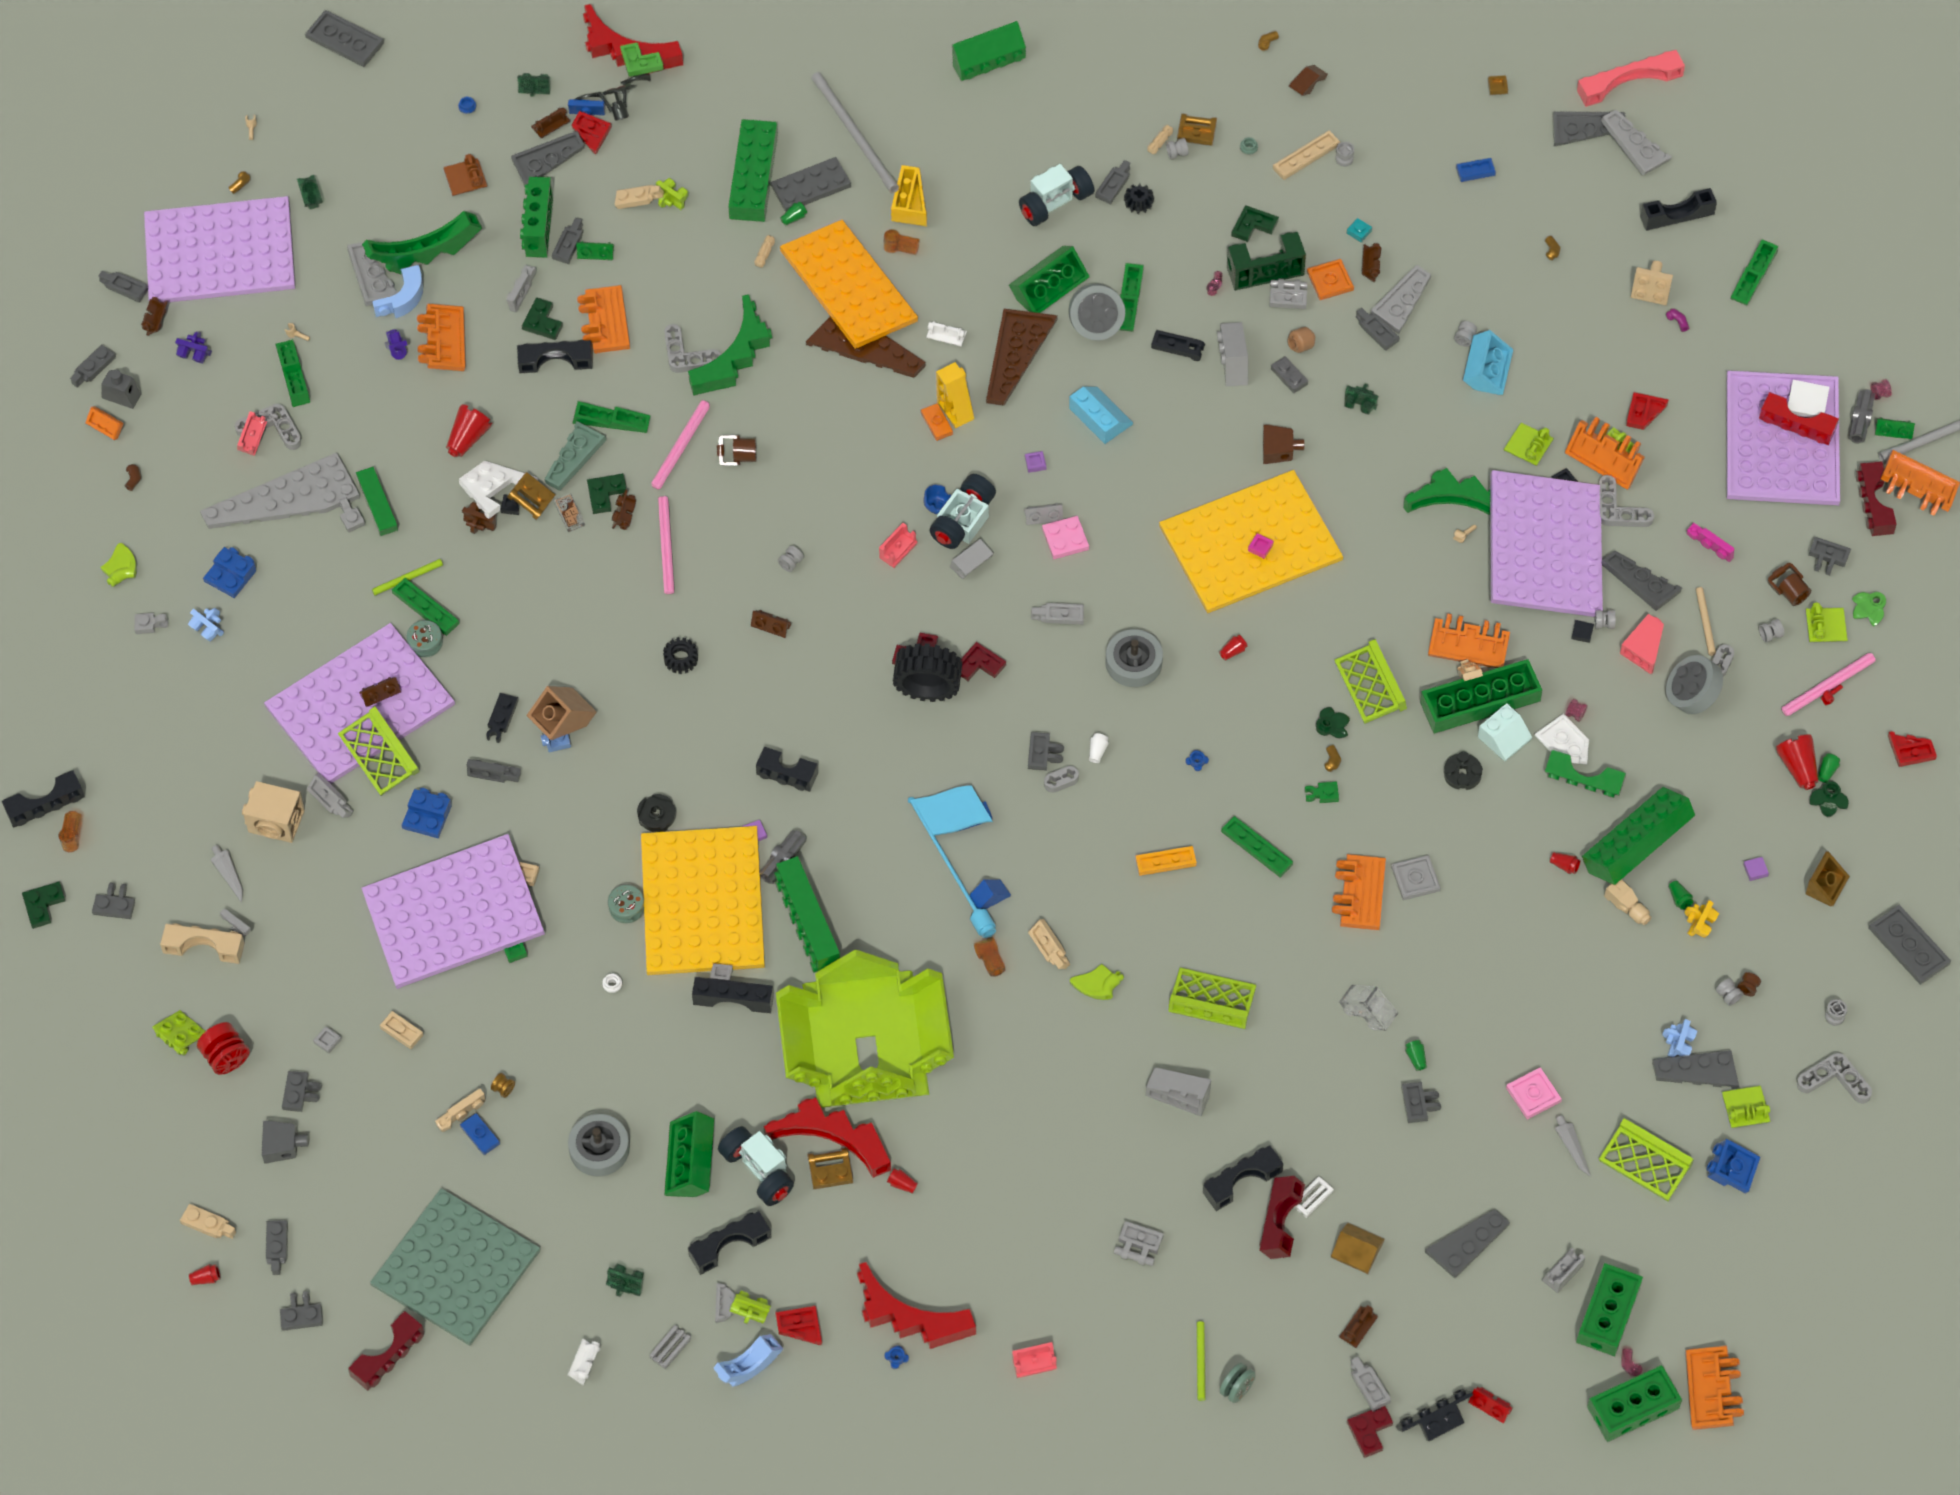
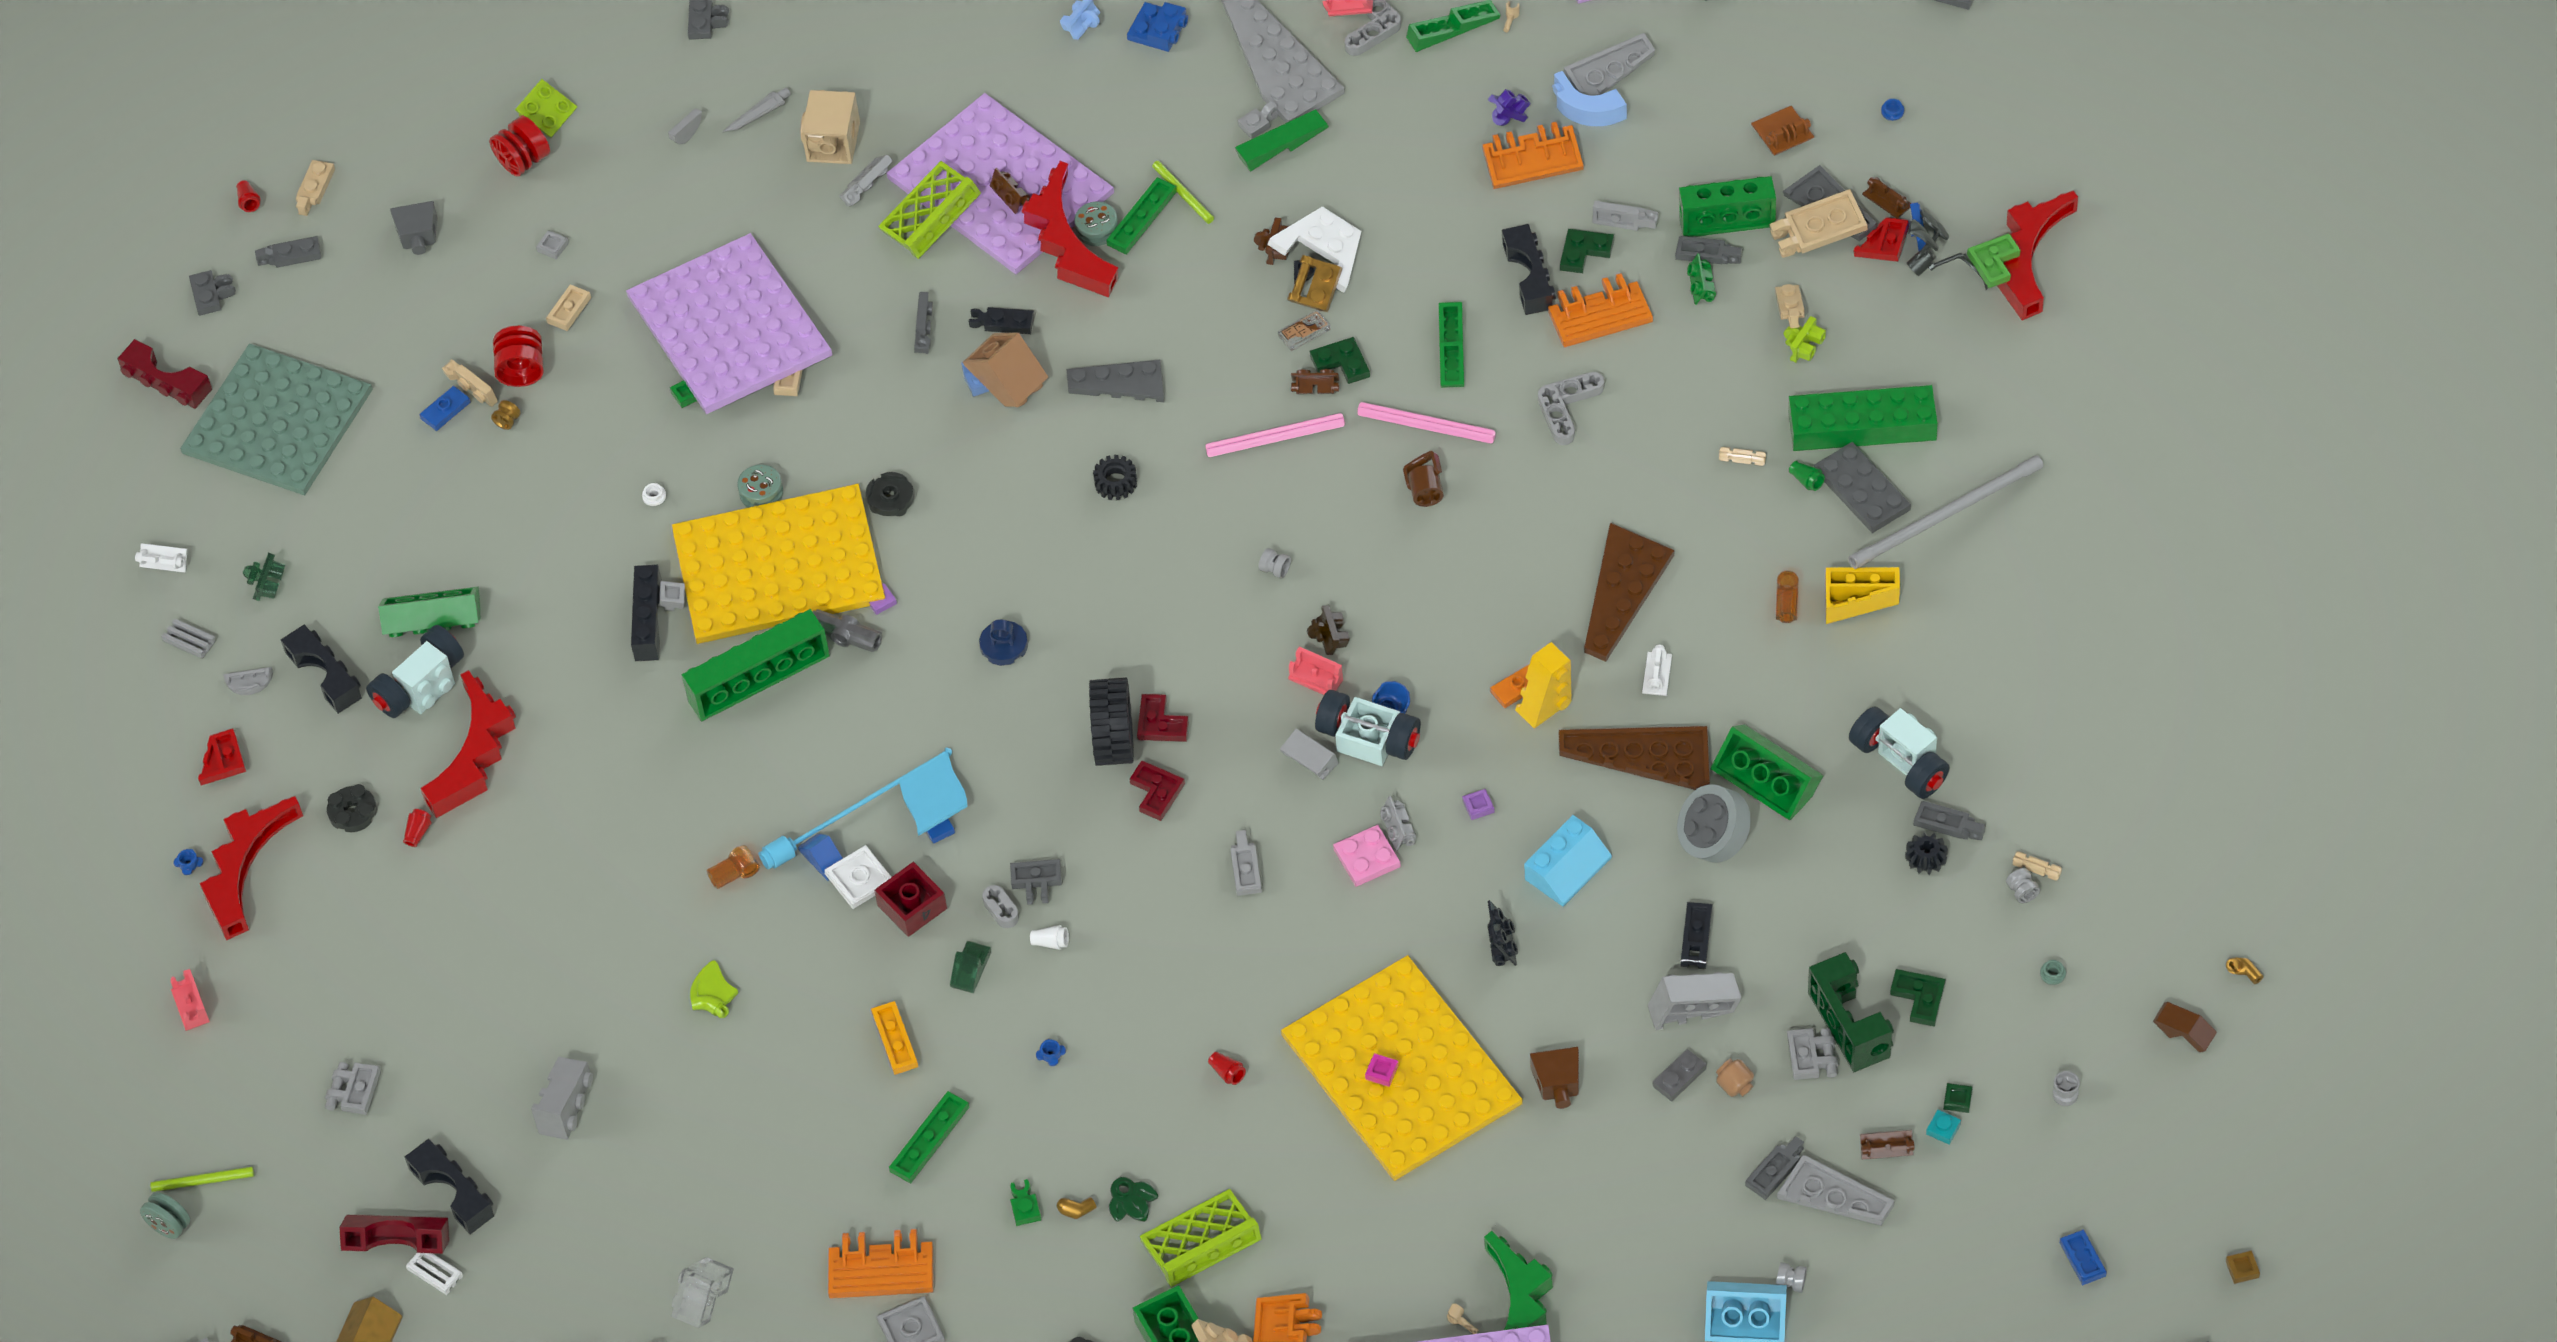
camera: 85 degrees right, 5 degrees down
(179, 939) = (660, 83): tan arch -> none
(295, 1091) = (484, 229): dark grey hinge -> none
(424, 248) = (1636, 85): green arch -> none
(427, 812) = (859, 274): blue plate -> none
(437, 661) = (1074, 260): none -> red arch
(447, 1065) = (518, 356): none -> red wheel
(466, 430) = (1397, 201): red cone -> none
(533, 84) = (1938, 168): clear green hips -> none
(566, 164) = (1819, 224): none -> tan tile
(578, 450) = (1398, 322): sand green wing -> none
(584, 642) = (1125, 379): none -> dark grey wing
(598, 1145) = (434, 517): wheel -> none
(740, 354) = (1574, 456): green arch -> none
(750, 1308) = (235, 712): lime hips -> none
(751, 1362) = (161, 710): light blue arch -> none
(766, 622) = (1175, 568): reddish brown hinge -> none
(800, 776) = (970, 595): black arch -> none
(818, 749) = (1003, 642): none -> dark blue tile
(831, 1174) = (421, 754): pearl gold plate -> none
(848, 284) = (1707, 551): light orange plate -> none
(860, 1000) = (598, 711): lime panel -> none
(861, 532) = (1325, 630): none -> dark brown hips
(875, 1220) = (347, 797): none -> pearl dark grey plate
(988, 51) = (2122, 639): green slope -> none
(1016, 870) = (857, 876): none -> white plate
(1048, 833) = (910, 899): none -> dark red brick
(1049, 944) = (753, 930): tan hinge -> none
(1111, 805) = (969, 966): none -> clear green slope
(1130, 294) = (1771, 870): green slope -> none
(1134, 658) = (1187, 954): wheel -> none
(1167, 456) = (1501, 937): none -> black hinge
(1197, 133) = (2056, 905): pearl gold plate -> none
(1208, 1009) = (684, 1109): lime fence -> none
(1215, 283) = (1802, 962): clear pink arm -> none
(1306, 155) = (2057, 1045): tan tile -> none
(1330, 279) = (1851, 1103): orange tile -> none
(1337, 218) = (1958, 1097): none -> dark green tile
(1362, 397) = (1649, 1172): clear green hips -> none

